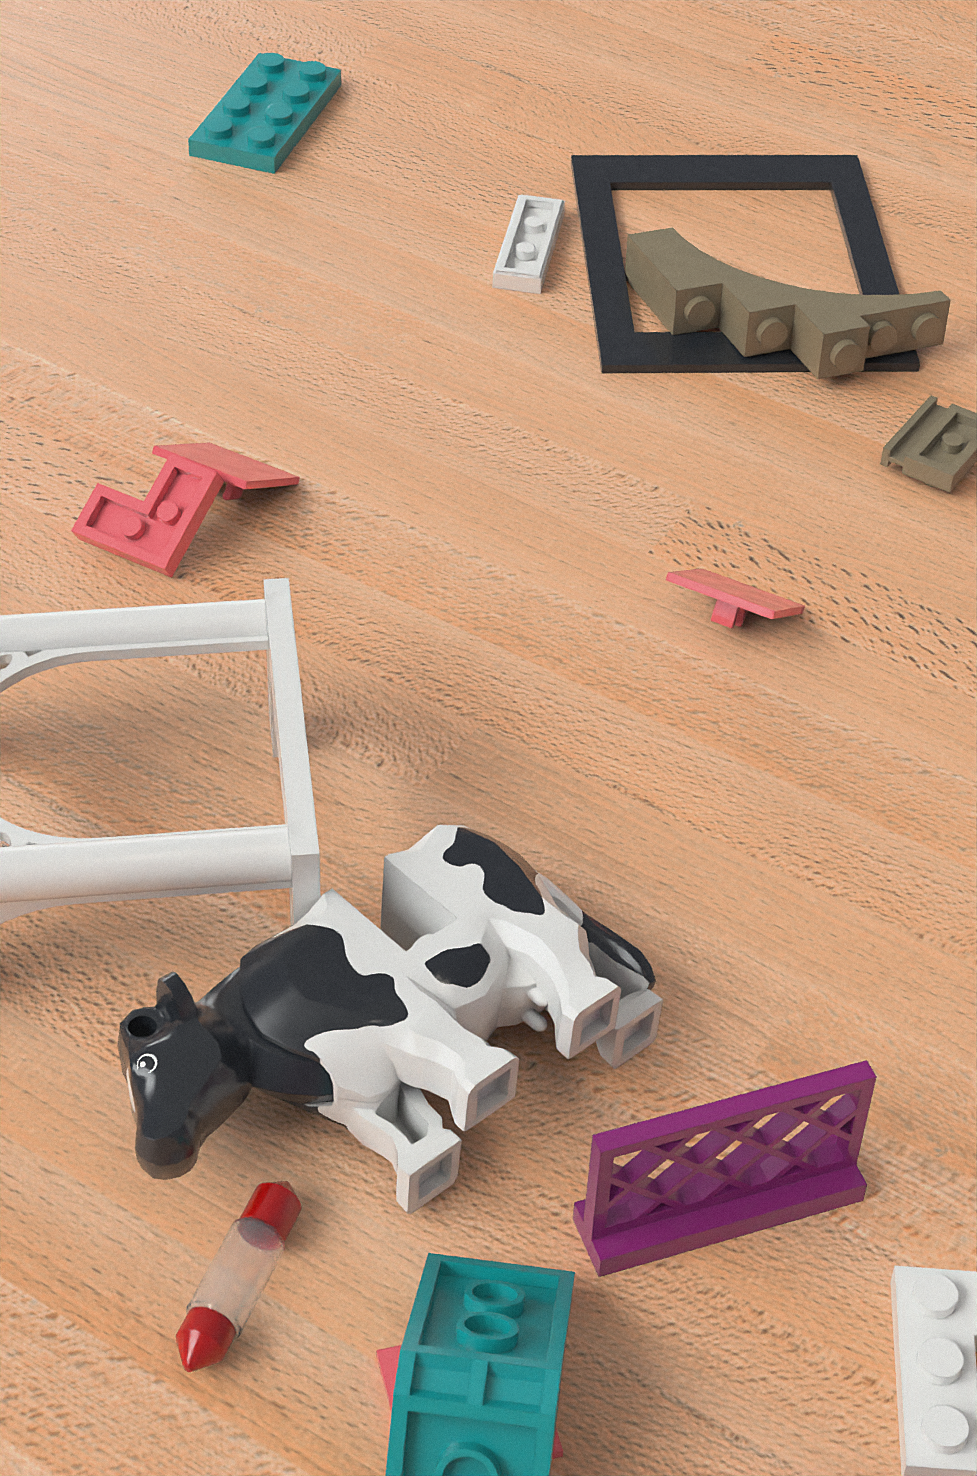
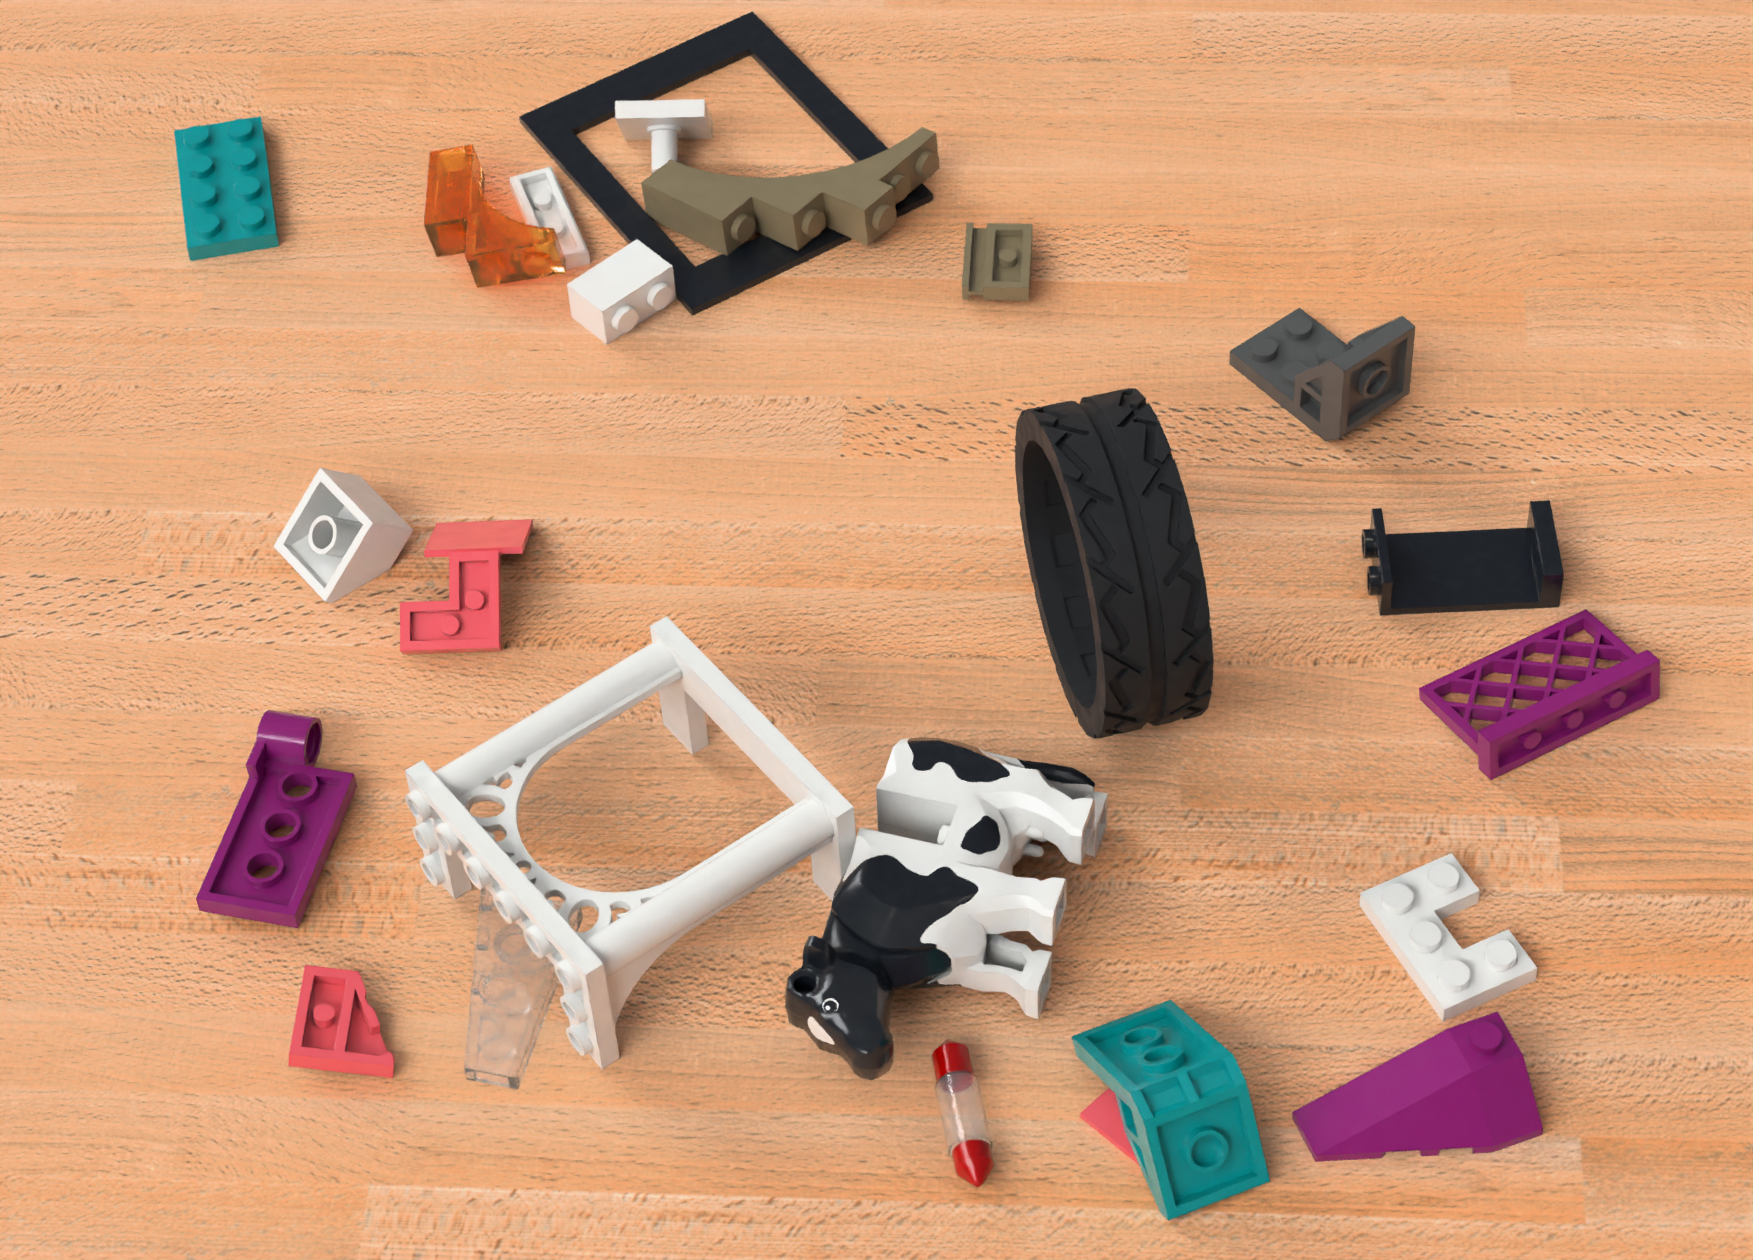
camera: 25 degrees left, 5 degrees up
(109, 409) = (341, 535): none -> white slope
(443, 215) = (465, 222): none -> clear orange arch
(542, 320) = (621, 291): none -> white brick
(692, 197) = (664, 124): none -> white tile
(713, 1200) = (1226, 888): magenta fence -> none
(734, 597) = (940, 465): coral piece -> none
(799, 733) = (1114, 562): none -> black tyre

